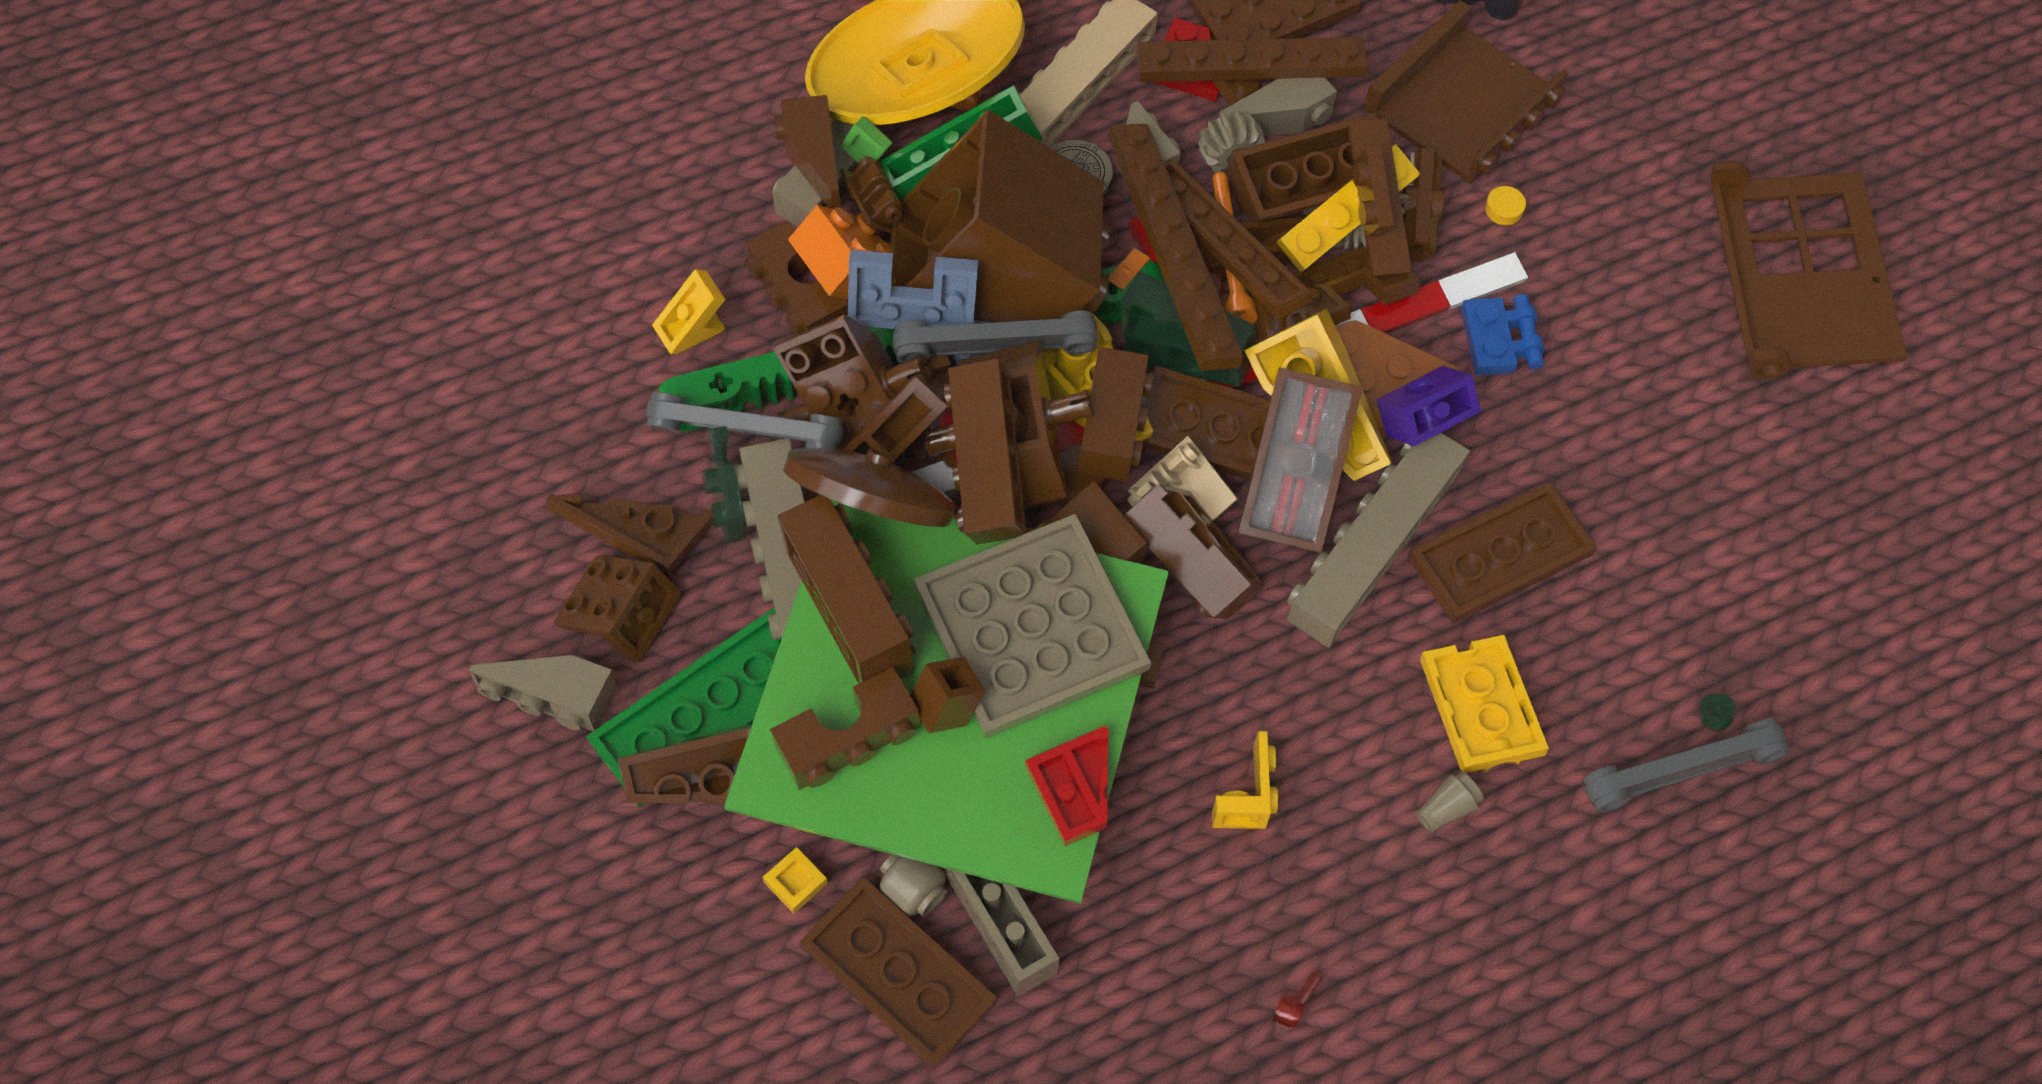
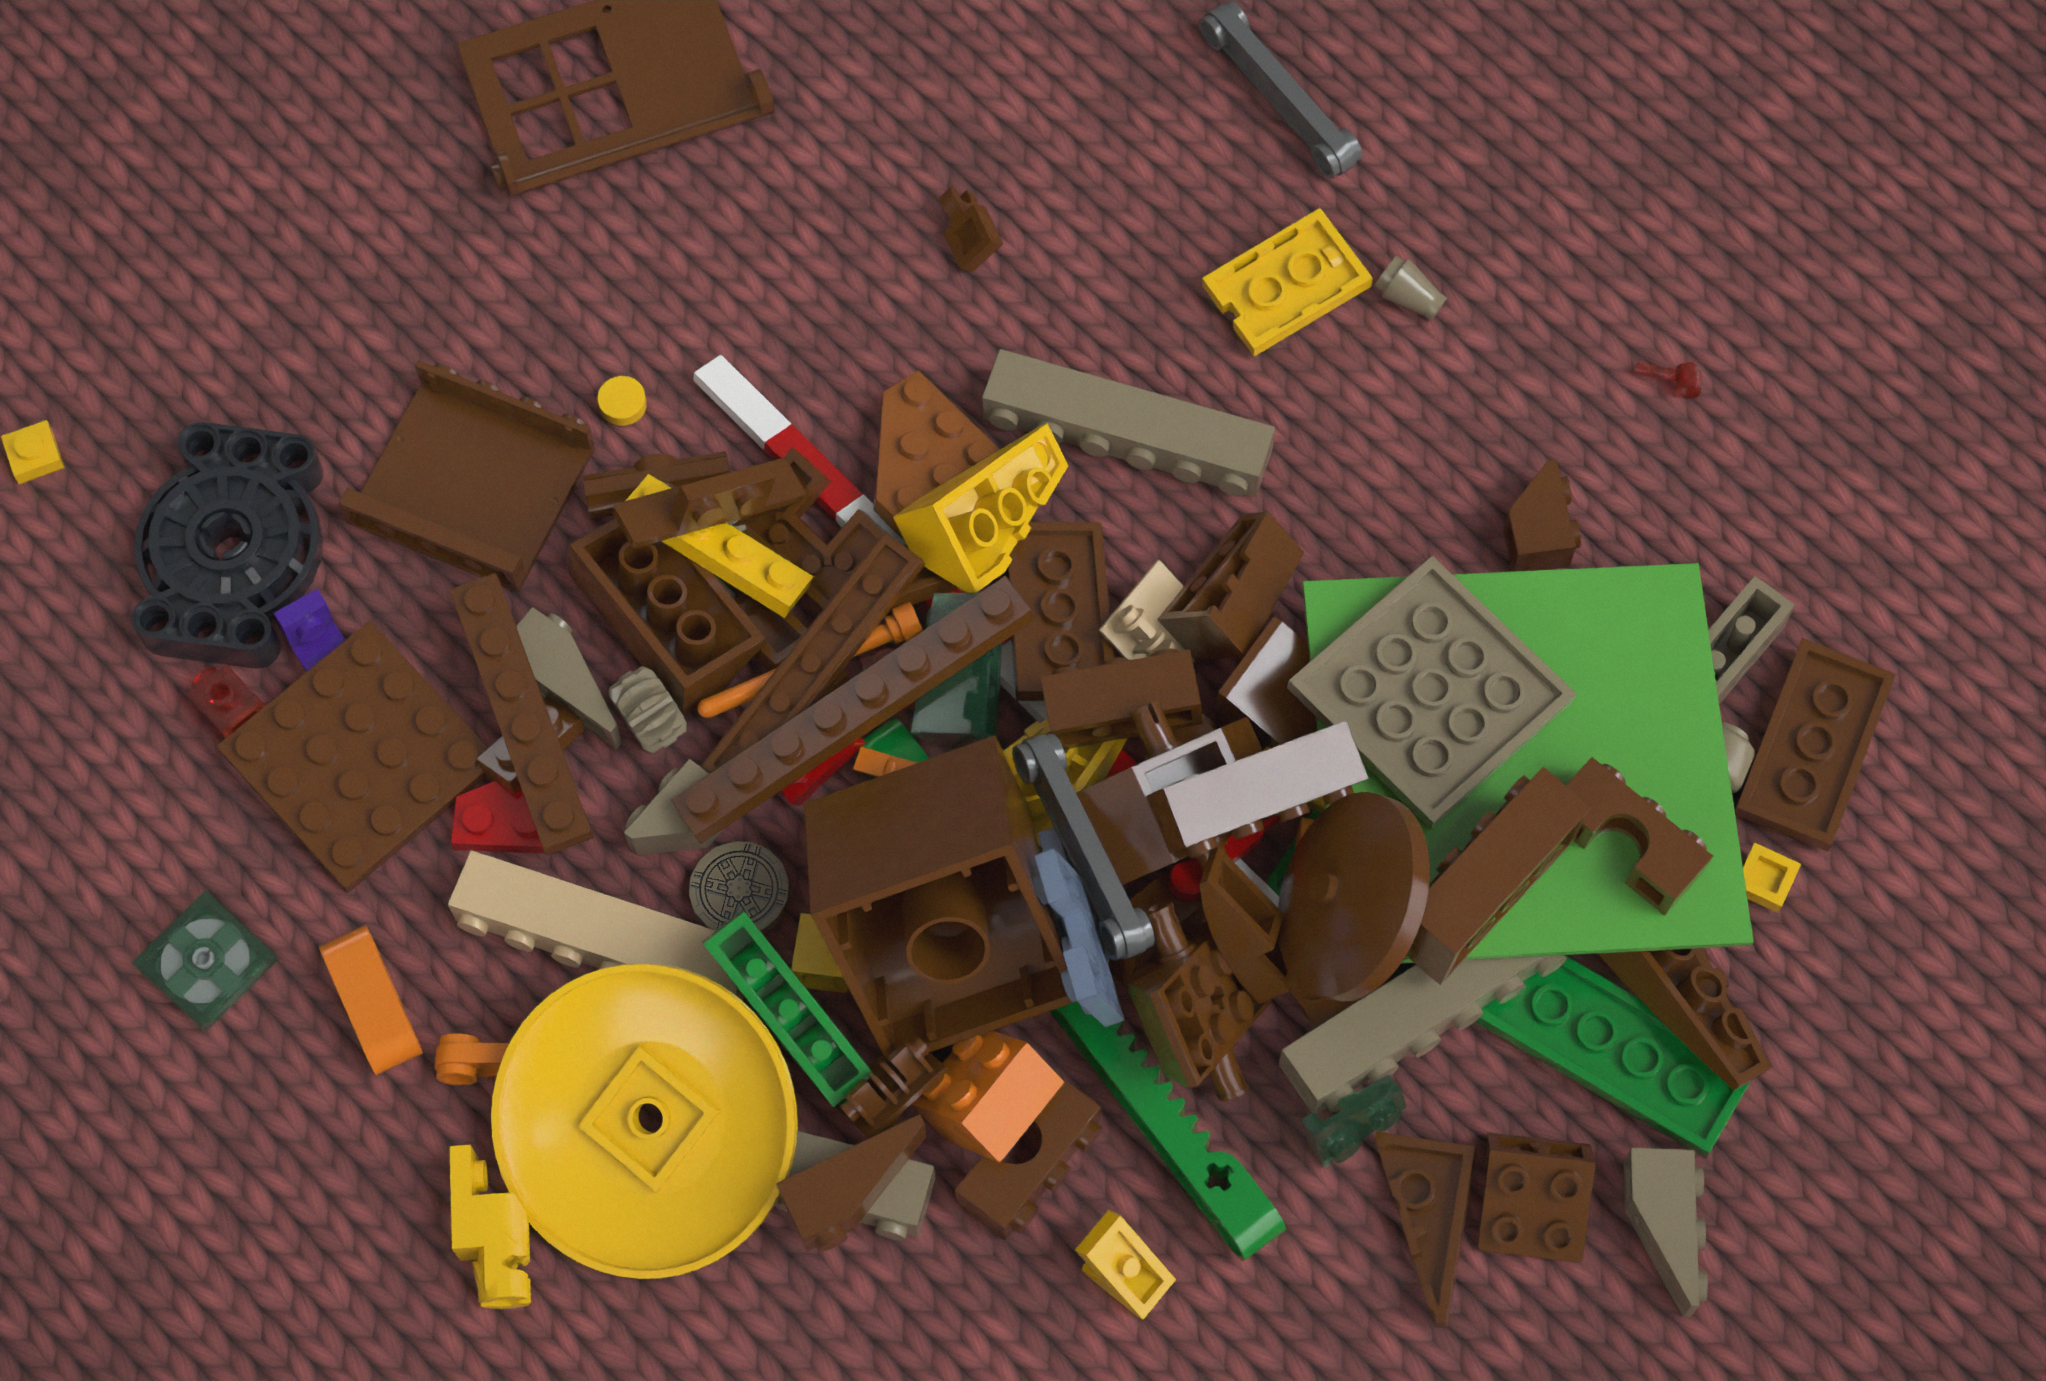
camera: 105 degrees left, 5 degrees up
(669, 412) = (1290, 1207): piece -> none
(865, 141) = (820, 1121): bright green plate -> none
(947, 694) = (1558, 737): reddish brown brick -> none
(1074, 784) = (1590, 596): red wing -> none
(1185, 822) = (1539, 524): none -> reddish brown slope
(1243, 811) = (1494, 456): yellow bracket -> none
(1299, 459) = (1092, 503): clear brick -> none
(1428, 405) = (994, 395): dark purple brick -> none
(1490, 338) = (815, 377): blue plate -> none
(1501, 552) = (1099, 302): reddish brown plate -> none
(1592, 476) = (972, 231): none -> reddish brown plate
(1722, 712) = (1202, 69): clear green hinge -> none

